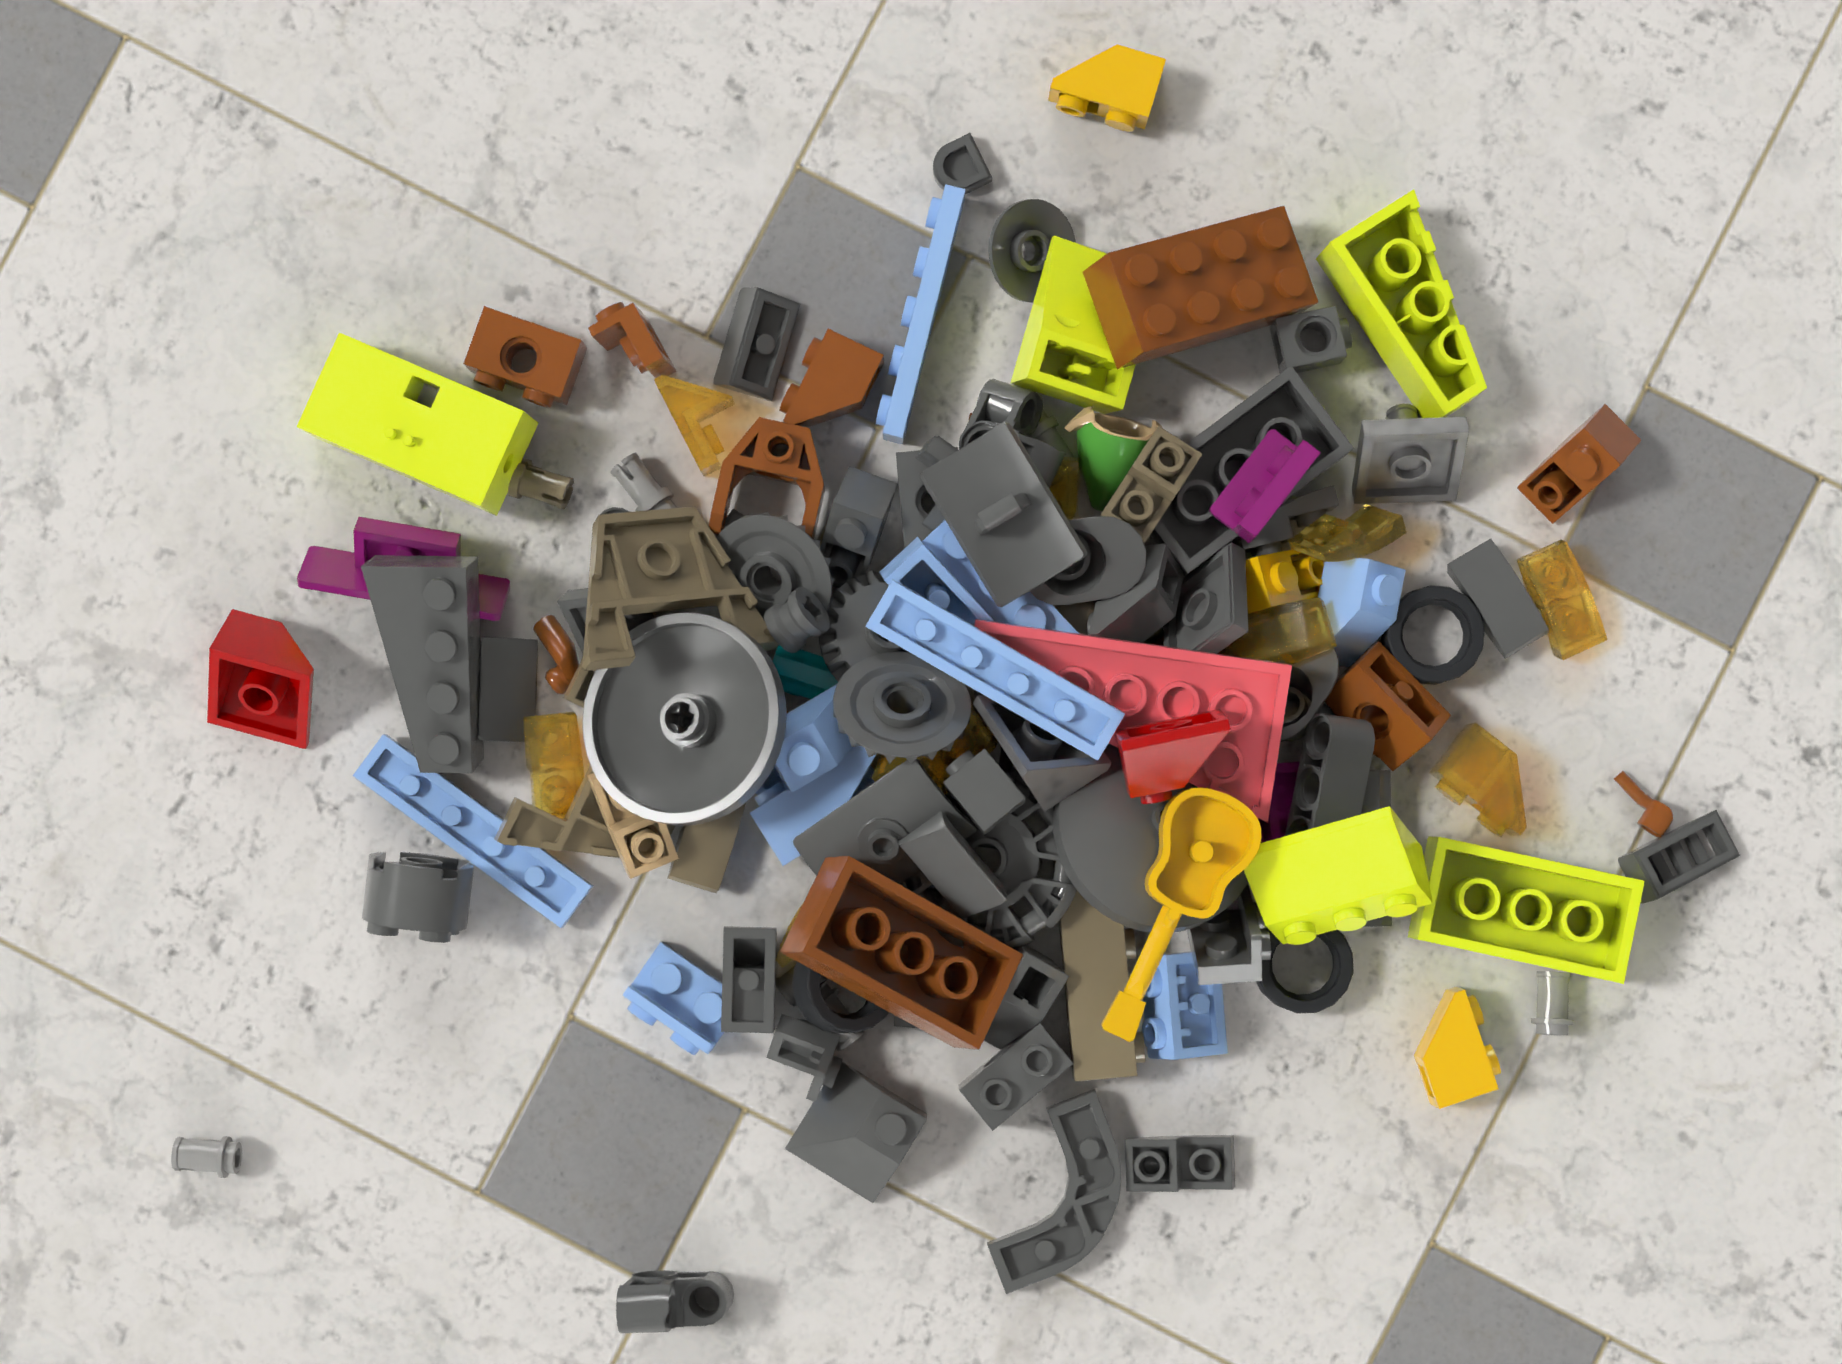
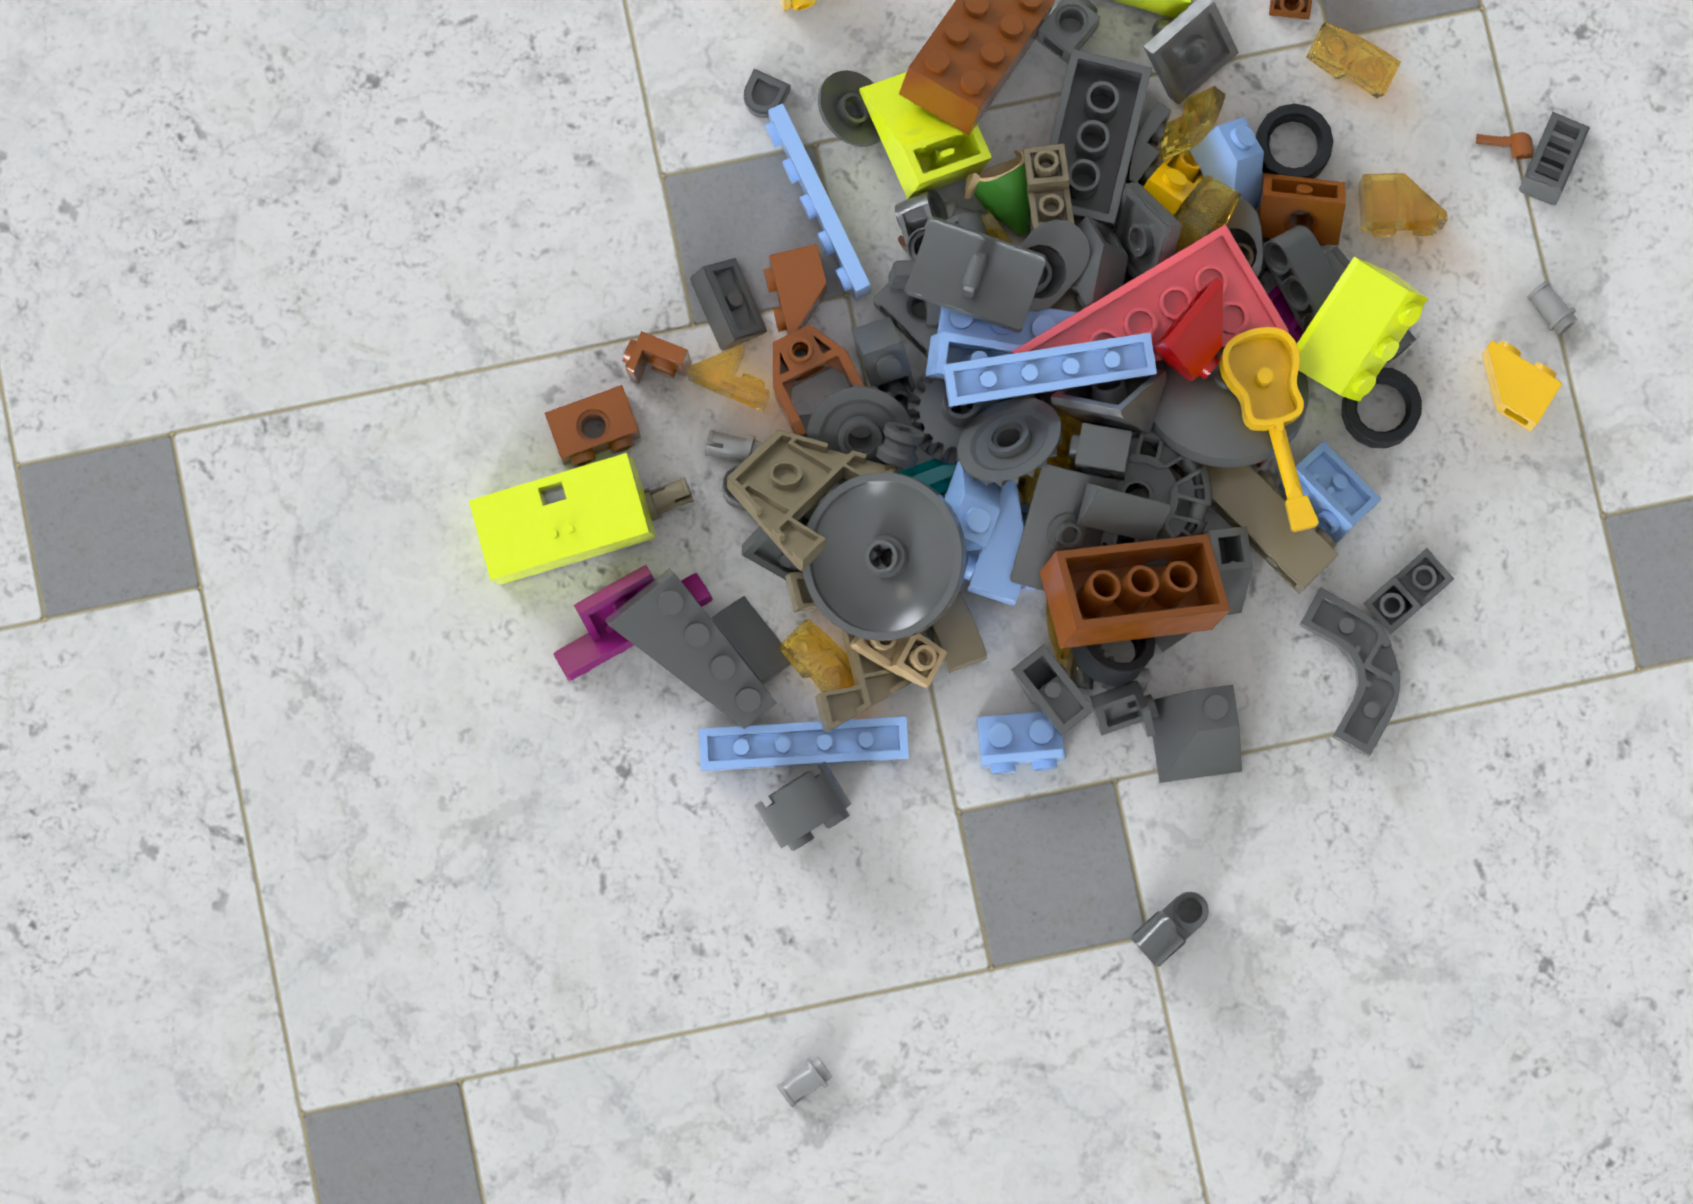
camera: 40 degrees left, 5 degrees down
(260, 680) = (596, 758): red slope -> none
(561, 650) = (767, 588): dark orange arm -> none
(1014, 1075) = (1263, 617): dark grey brick -> none
(1231, 945) = (1328, 427): dark grey bracket -> none
(1262, 484) = (1116, 131): magenta bracket -> none
(1499, 595) = (1314, 87): dark grey slope -> none
(1528, 909) = (1490, 261): neon yellow brick -> none

